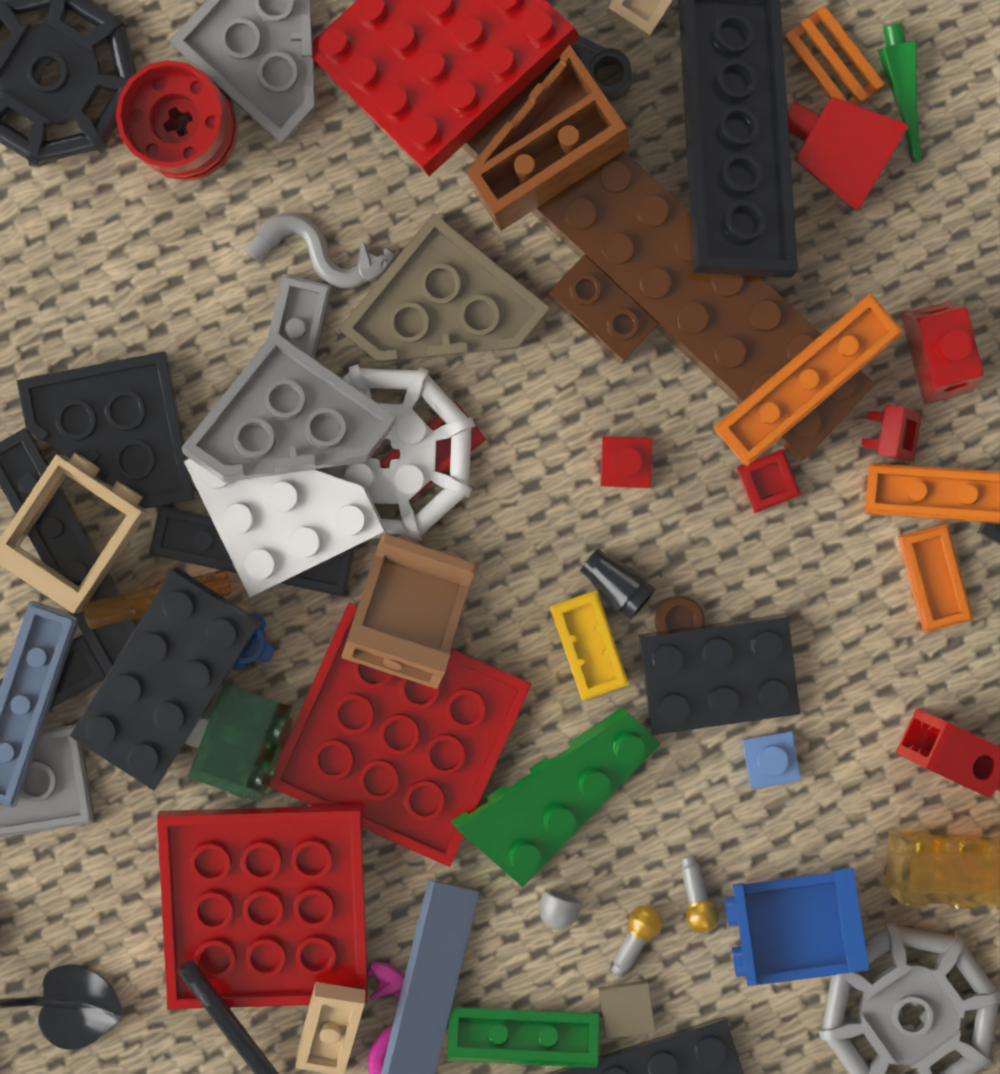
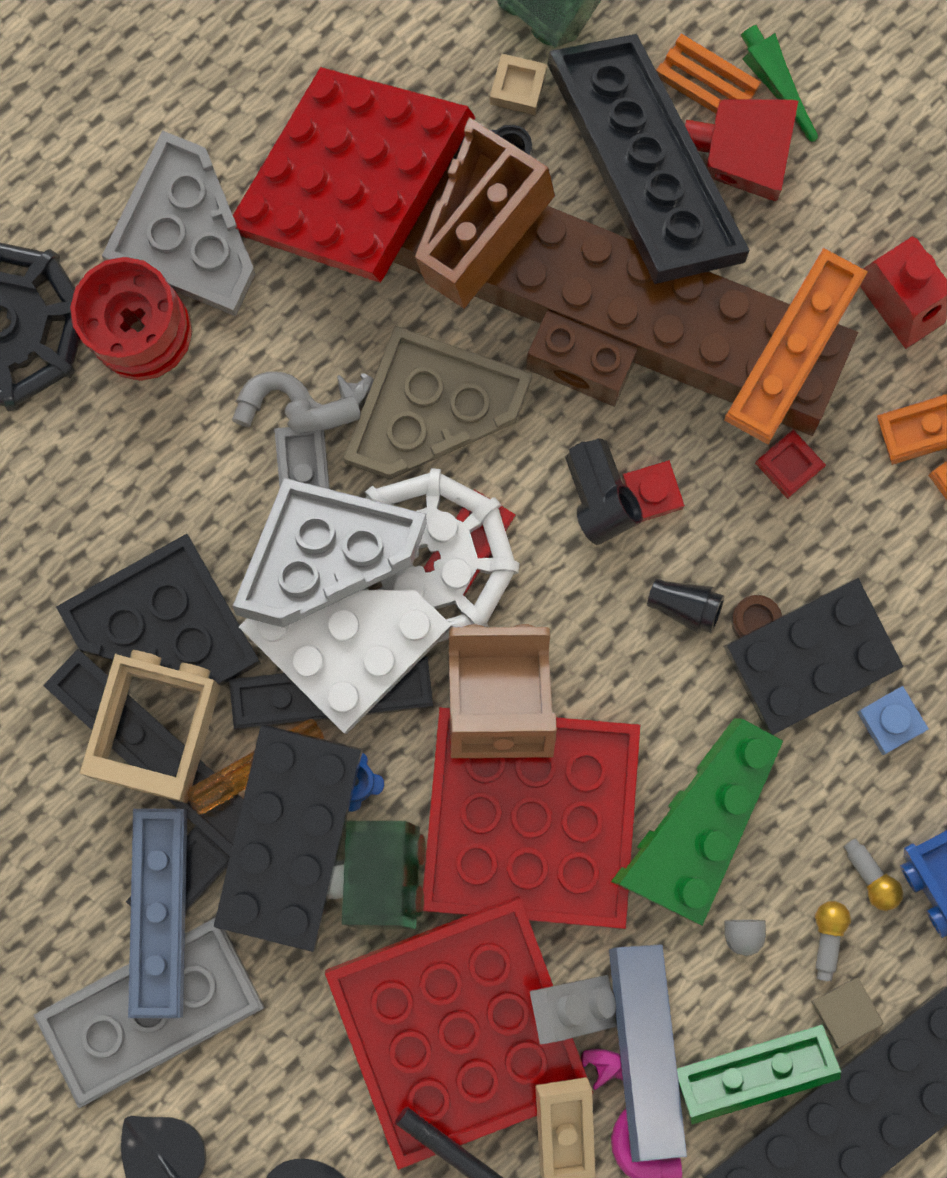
camera: 15 degrees left, 10 degrees down
(330, 284) = (324, 417): none -> light grey arm
(375, 924) = (574, 1009): none -> light grey plate
(575, 462) = (606, 502): none -> black piece
(589, 645) = (681, 671): yellow plate -> none
(898, 433) = (893, 377): red tile -> none

